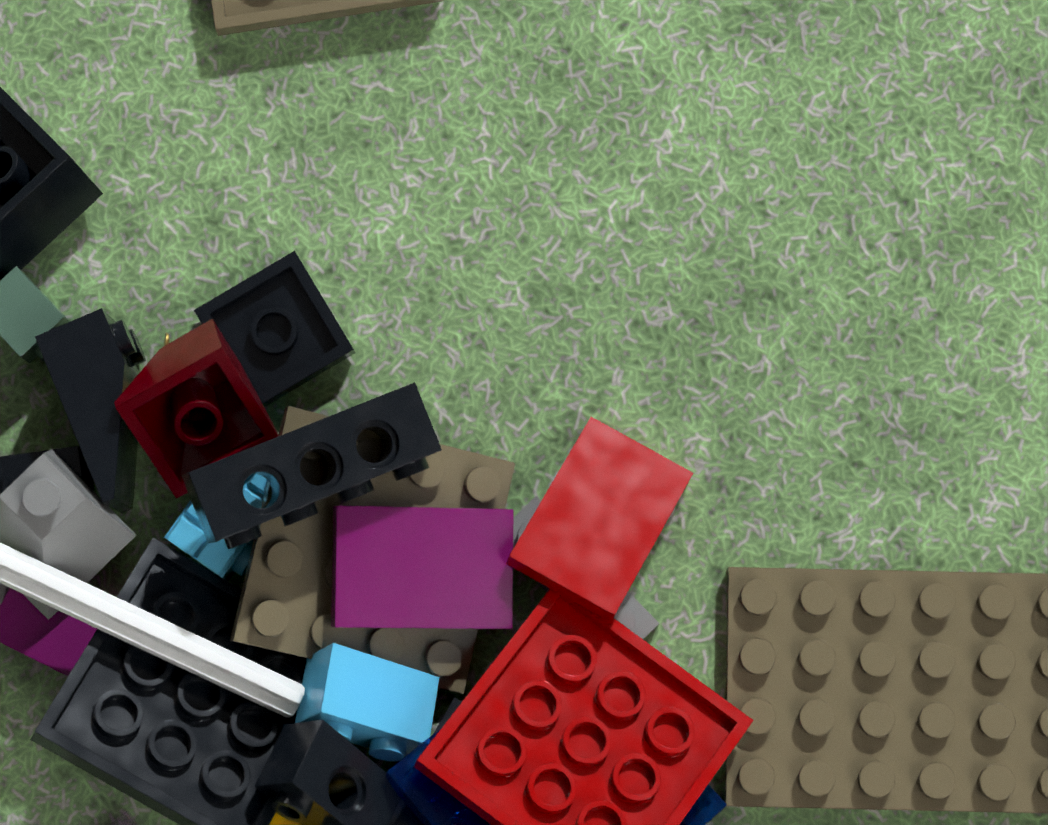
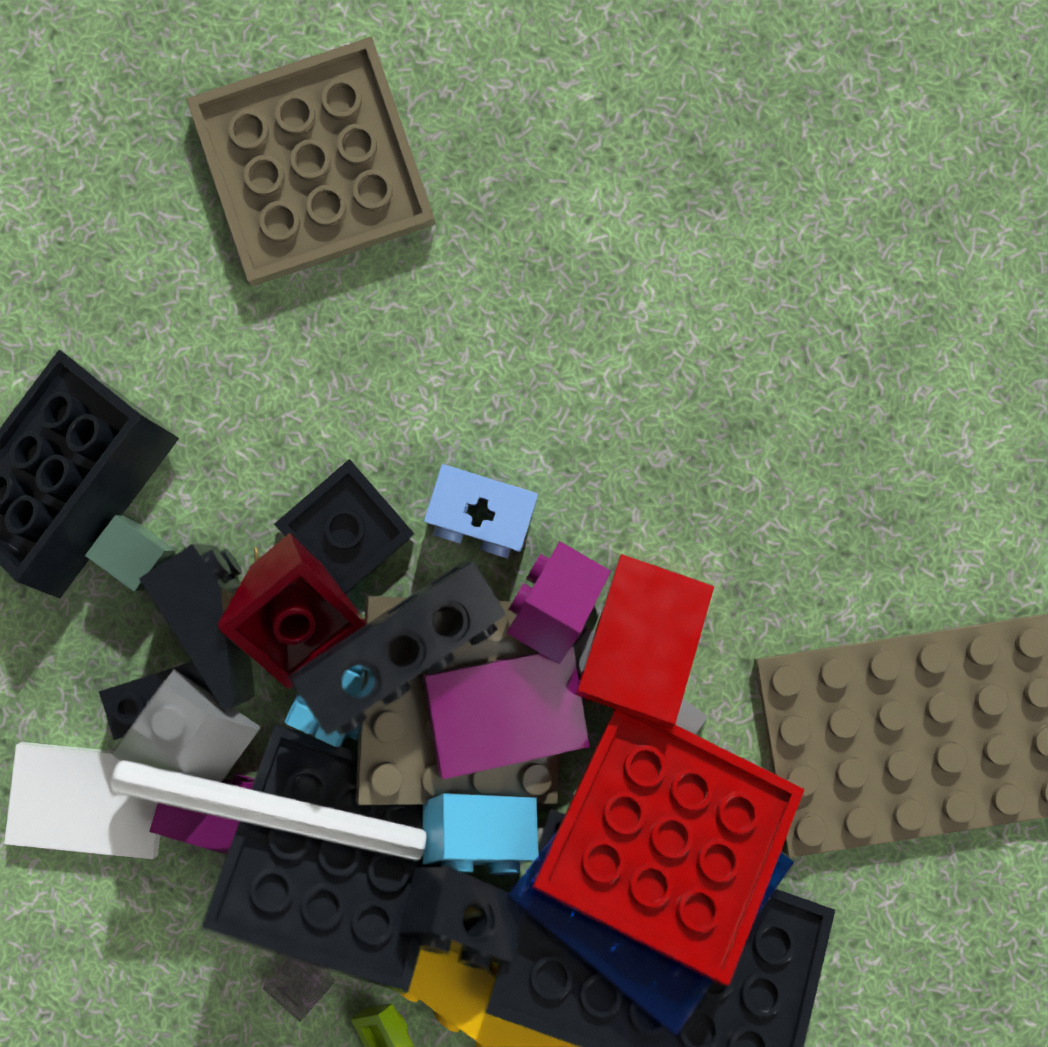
camera: 15 degrees left, 5 degrees up
(419, 309) = (459, 489): none -> light blue brick
(504, 451) = (558, 603): none -> magenta brick

